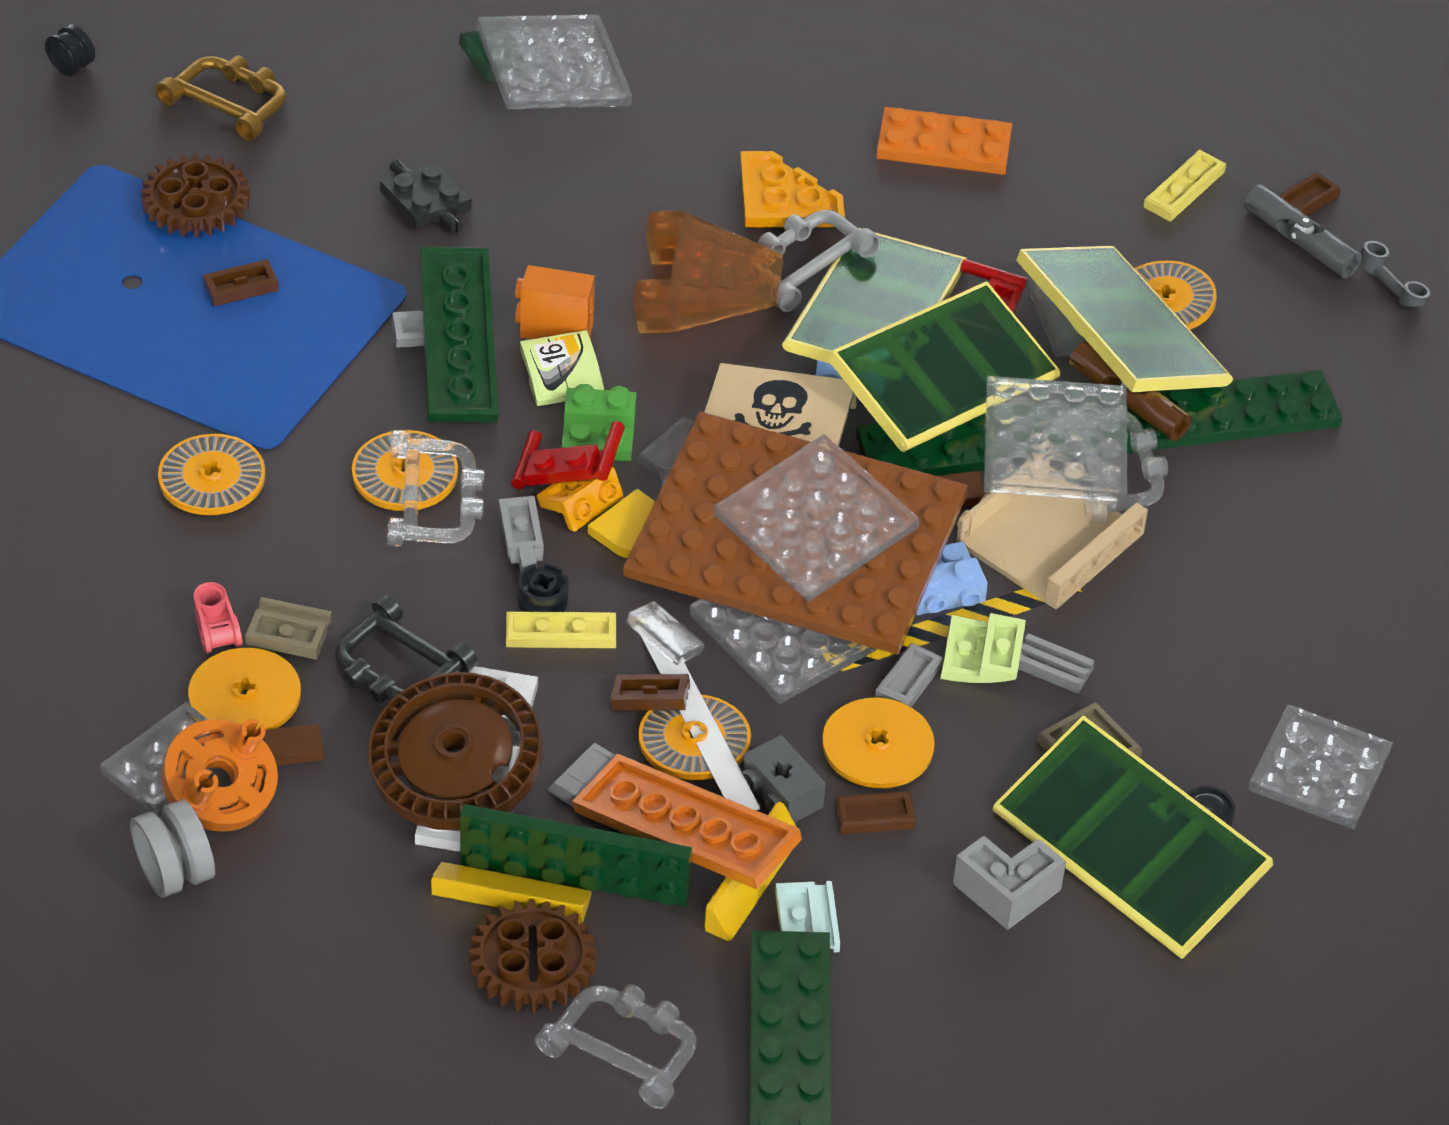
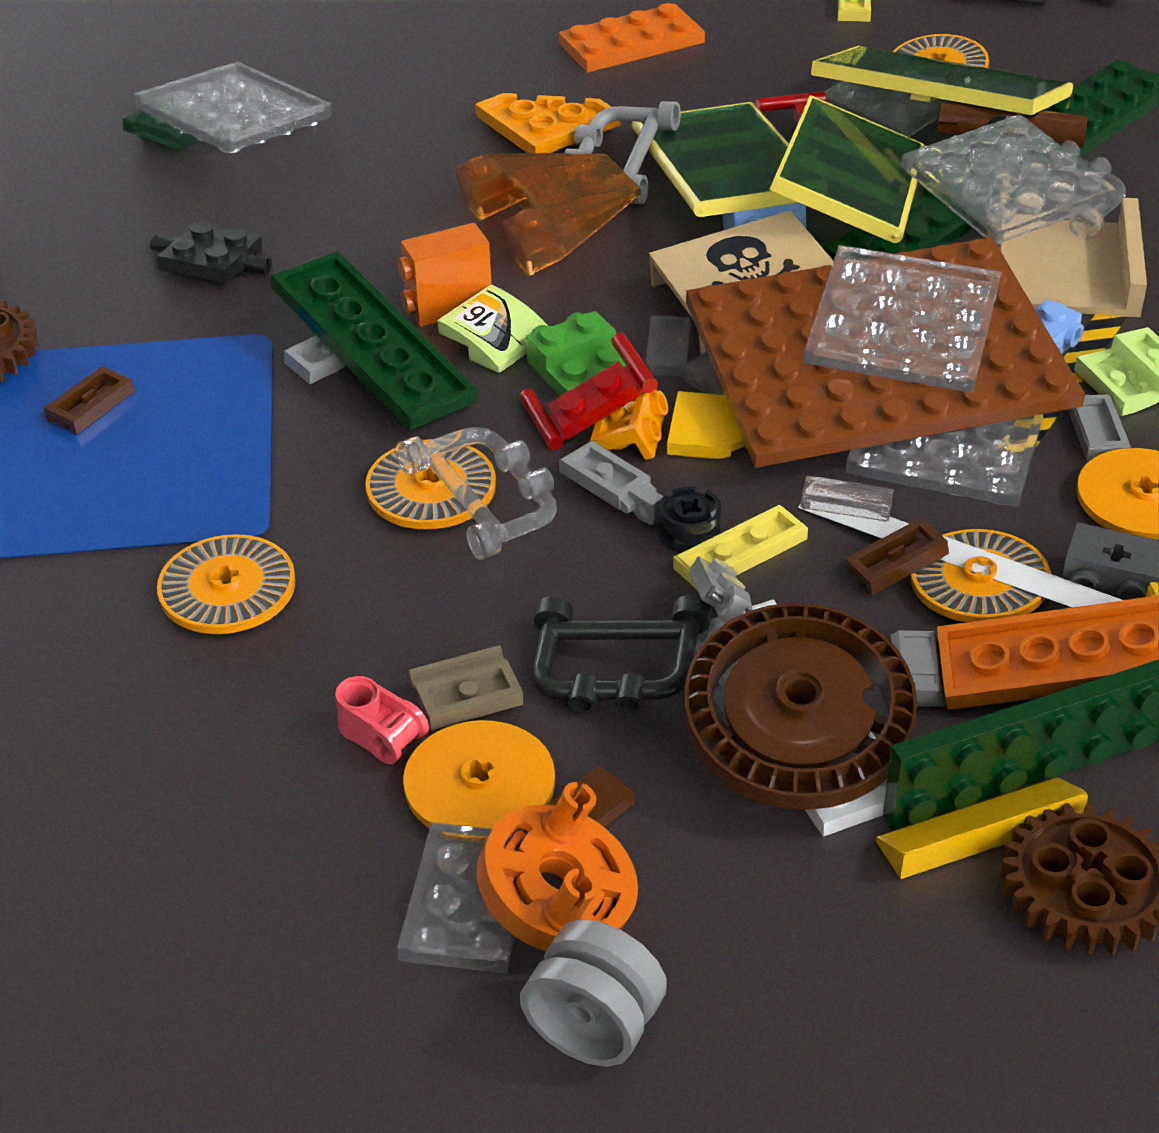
camera: 30 degrees left, 5 degrees down
(497, 650) = (720, 588): none -> light grey hinge

